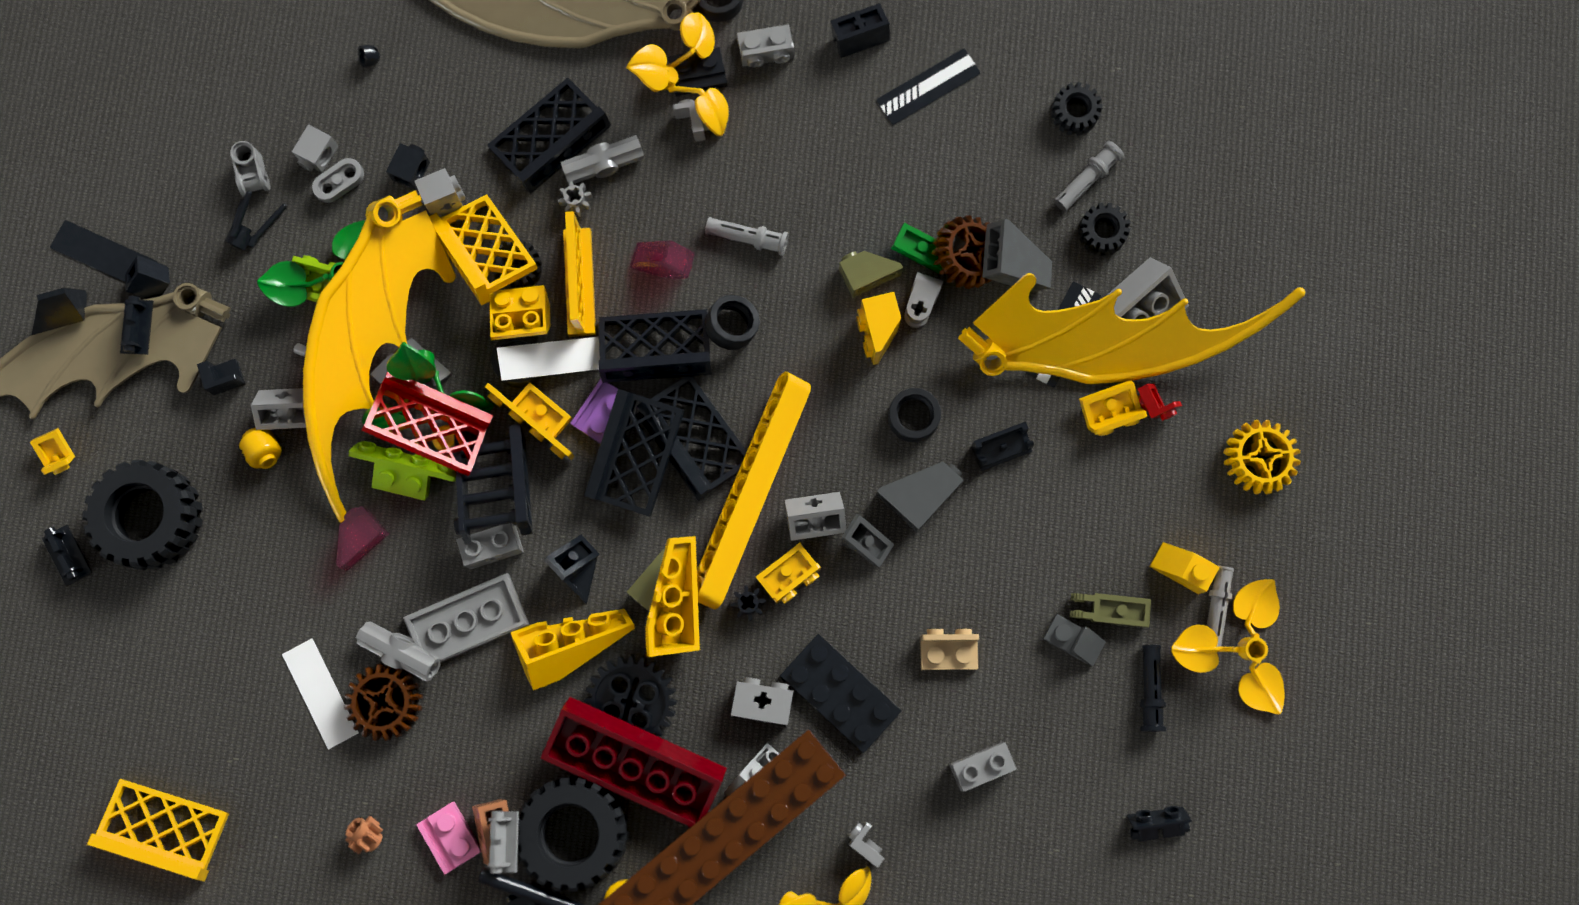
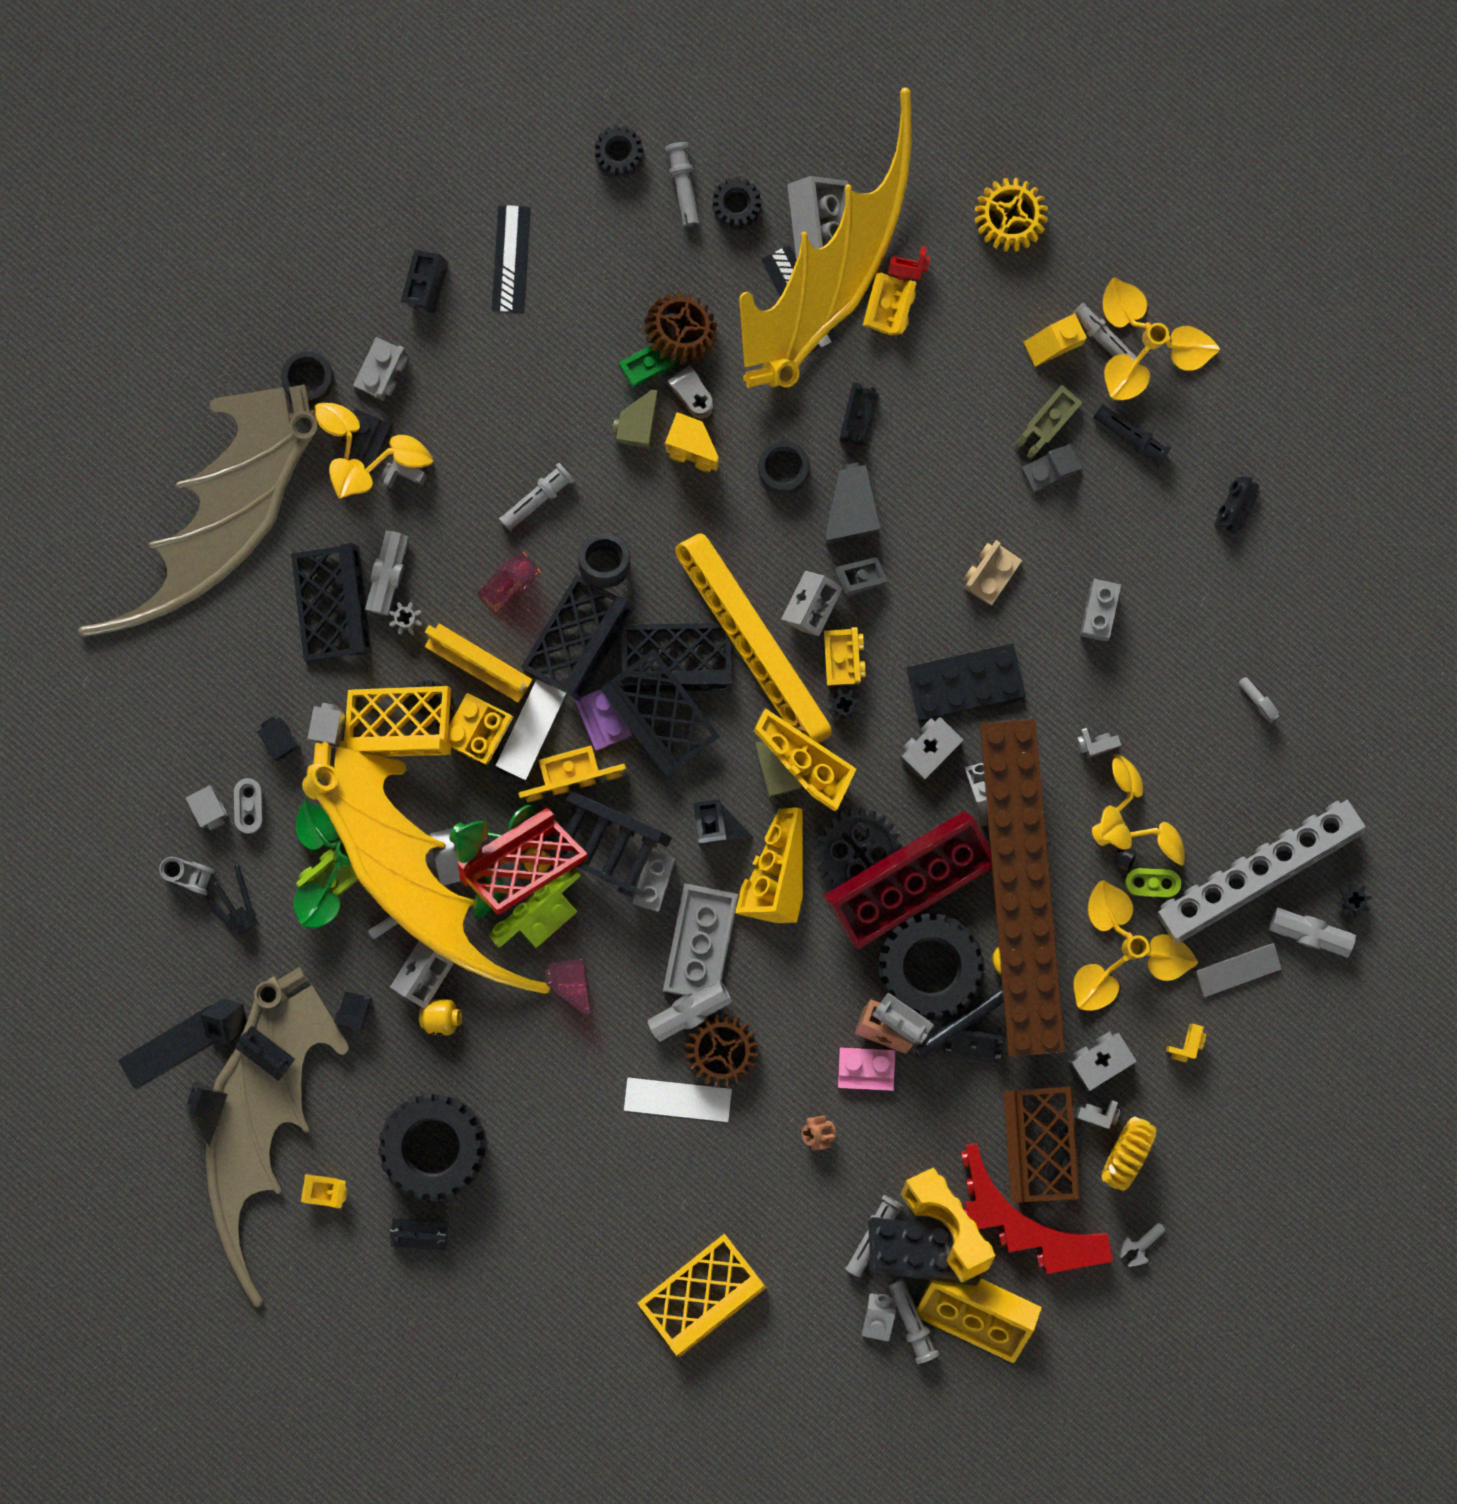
camera: 55 degrees left, 5 degrees up
(368, 55) = (152, 709): black hinge -> none
(1012, 255) = (712, 295): dark grey slope -> none

